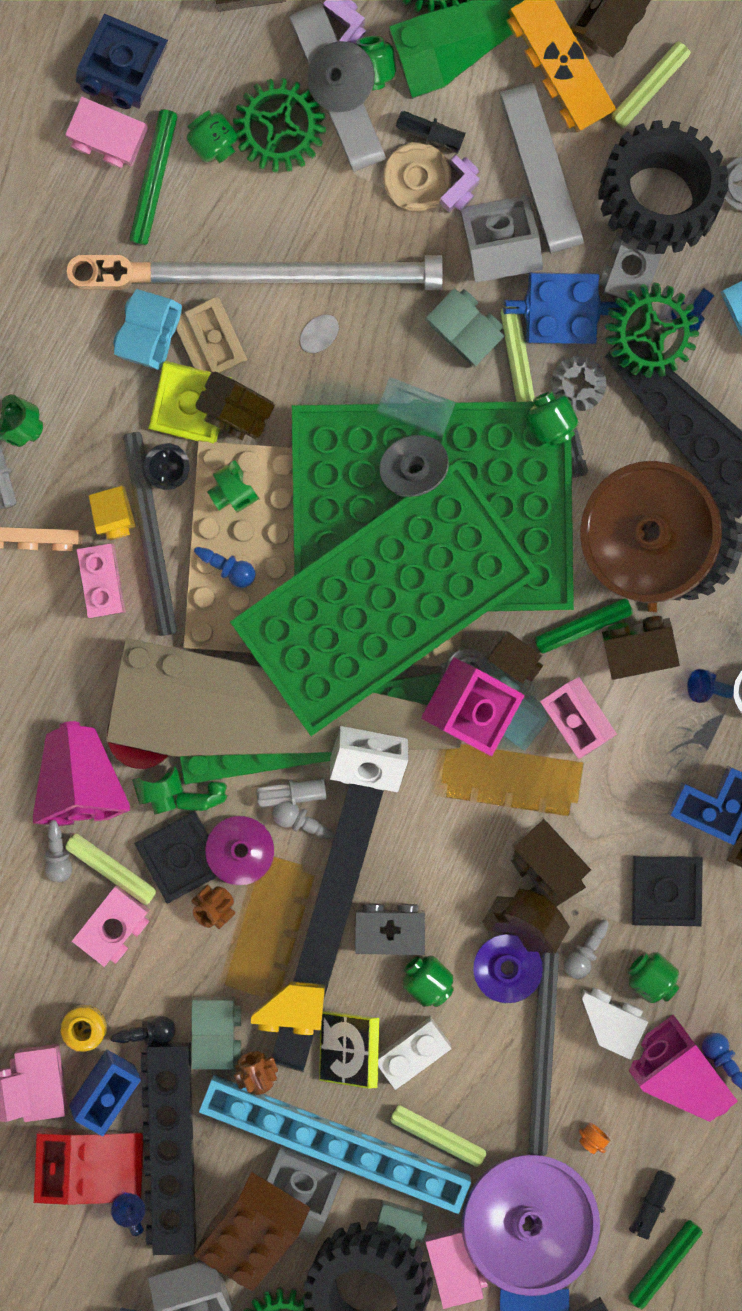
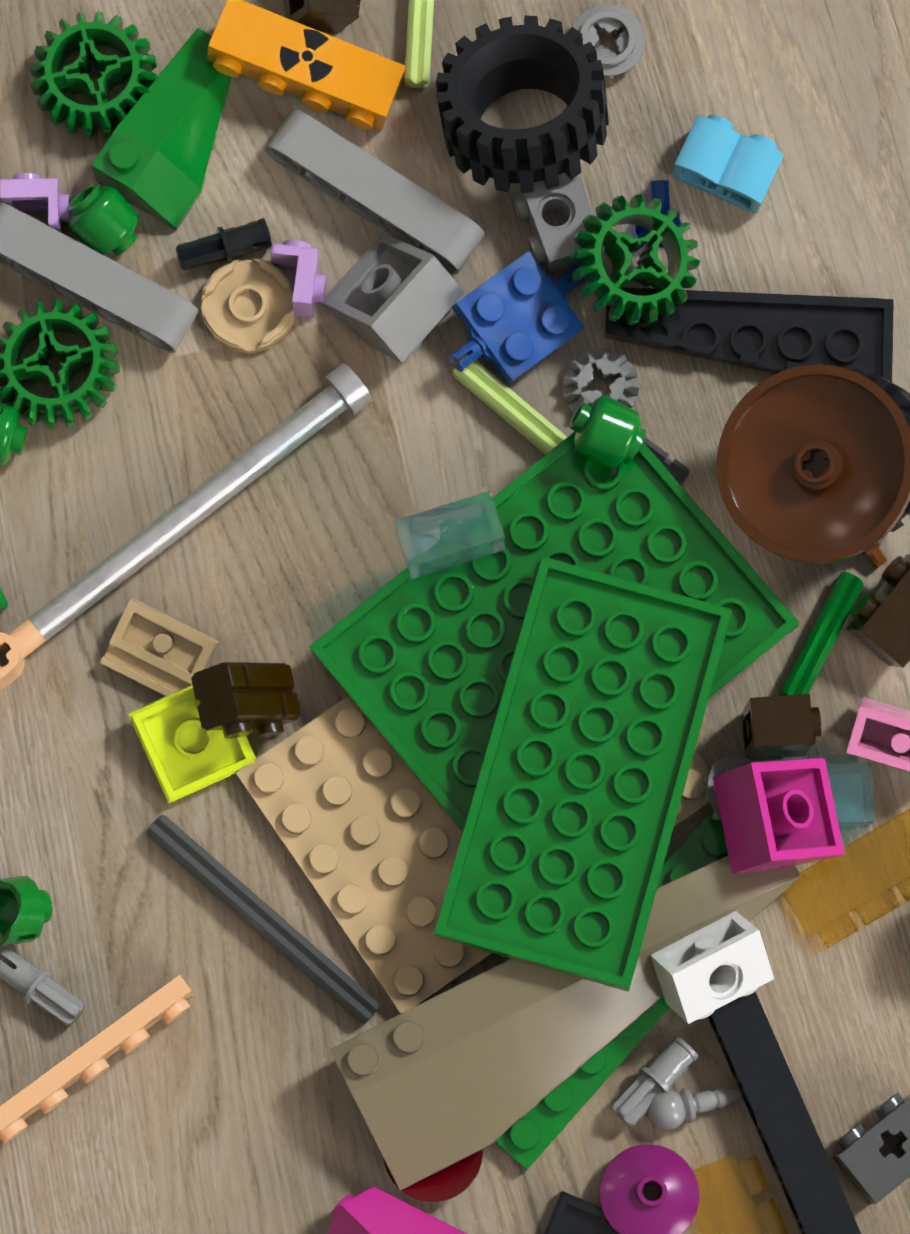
camera: 45 degrees left, 10 degrees down
(101, 580) = (249, 1013): bright pink brick -> none
(112, 513) = (202, 926): yellow slope -> none
(147, 329) = (81, 693): medium azure brick -> none
(160, 792) = (507, 1199): green piece -> none
(166, 466) = (221, 826): black piece -> none
(202, 802) = (563, 1172): green arm -> none
(231, 488) = (316, 790): green piece -> none
(240, 573) = (399, 877): blue bar -> none
(319, 333) = (275, 554): flat silver sticker -> none
(355, 81) = (102, 259): dark grey dish -> none
(414, 454) = (486, 593): dark grey dish -> none
(465, 326) = (429, 419): sand green brick -> none

